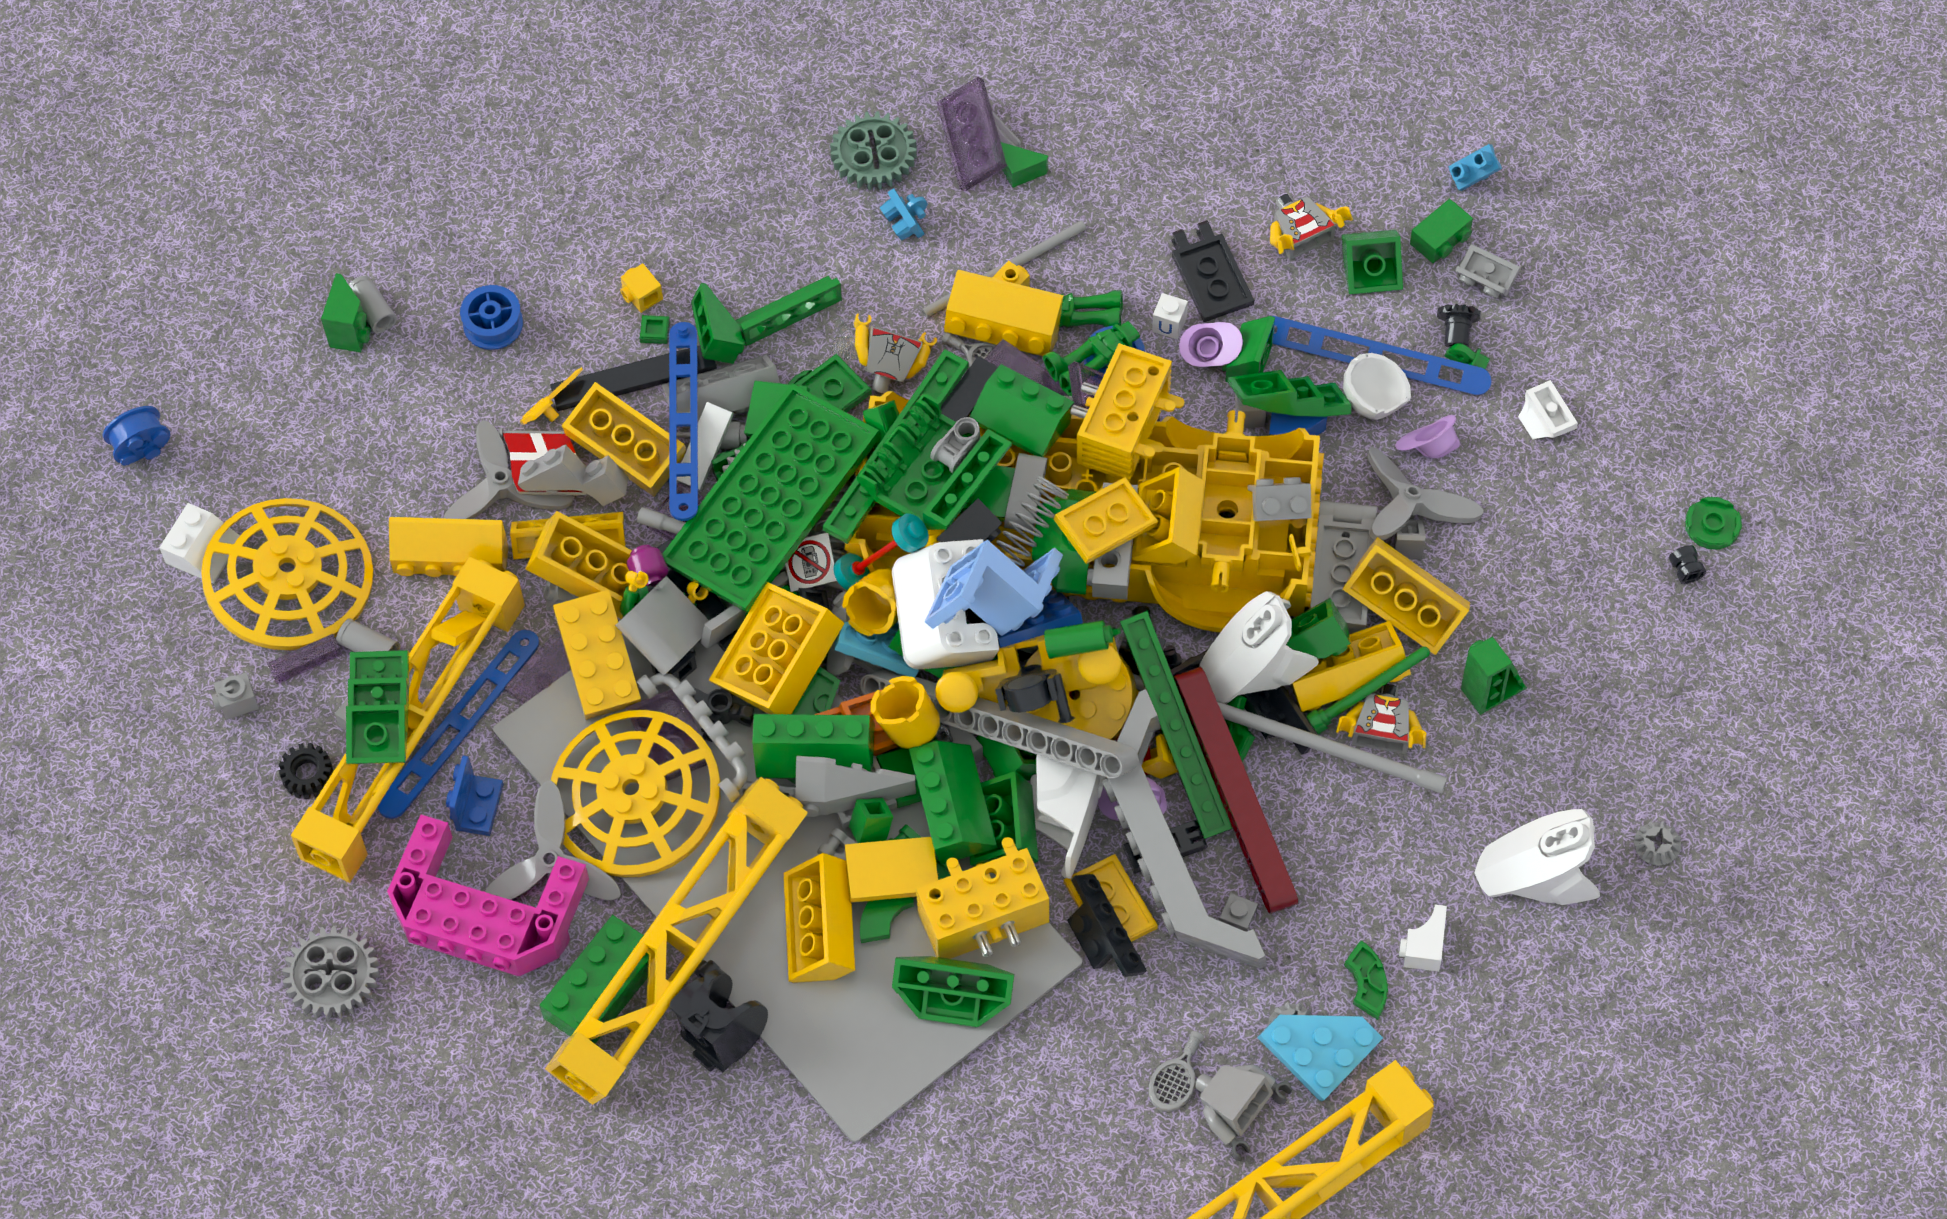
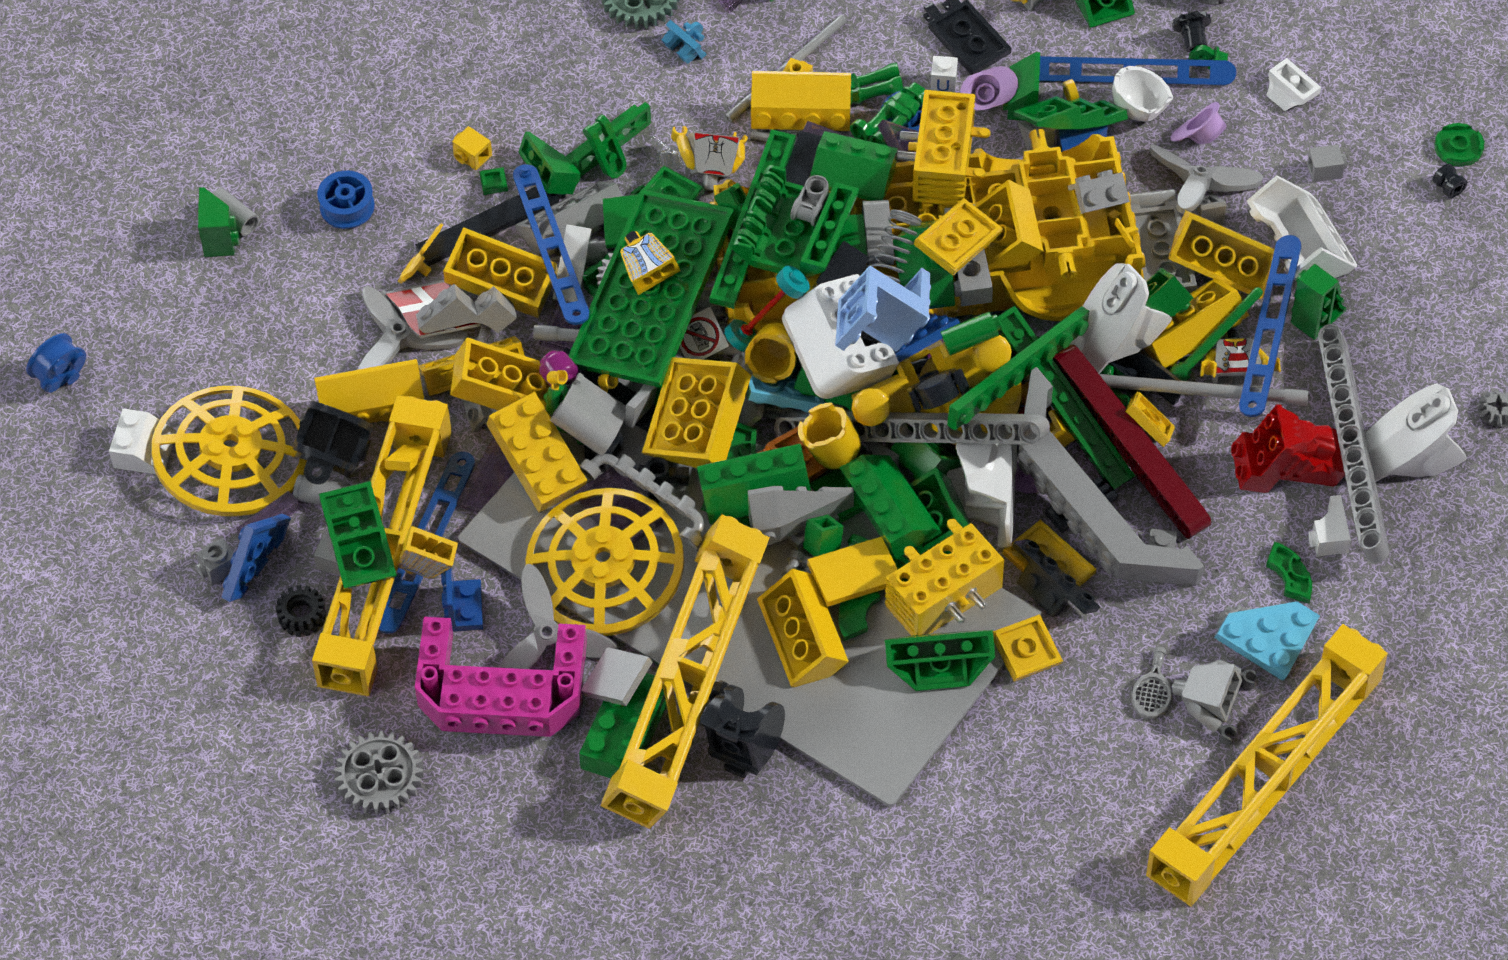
camera: 15 degrees left, 5 degrees down
(272, 696) = (250, 558): none -> blue plate
(388, 593) = (331, 441): none -> black animal
(441, 743) = (426, 553): none -> yellow torso
(602, 929) = (616, 676): none -> light grey tile
(769, 469) = (647, 261): none -> torso
(778, 321) = (606, 147): none -> green plate
(1053, 998) = (1026, 648): none -> yellow tile
(1120, 688) = (1018, 368): none -> green plate
(1265, 769) = (1150, 418): none -> yellow tile
(1302, 364) = (1070, 90): none -> yellow tile
(1404, 843) = (1287, 450): none -> red brick
(1474, 607) = (1286, 248): none -> blue piece
(1485, 805) = (1353, 444): none -> light grey beam
(1505, 588) = (1298, 213): none -> white windscreen
(1557, 512) = (1326, 163): none -> light grey brick

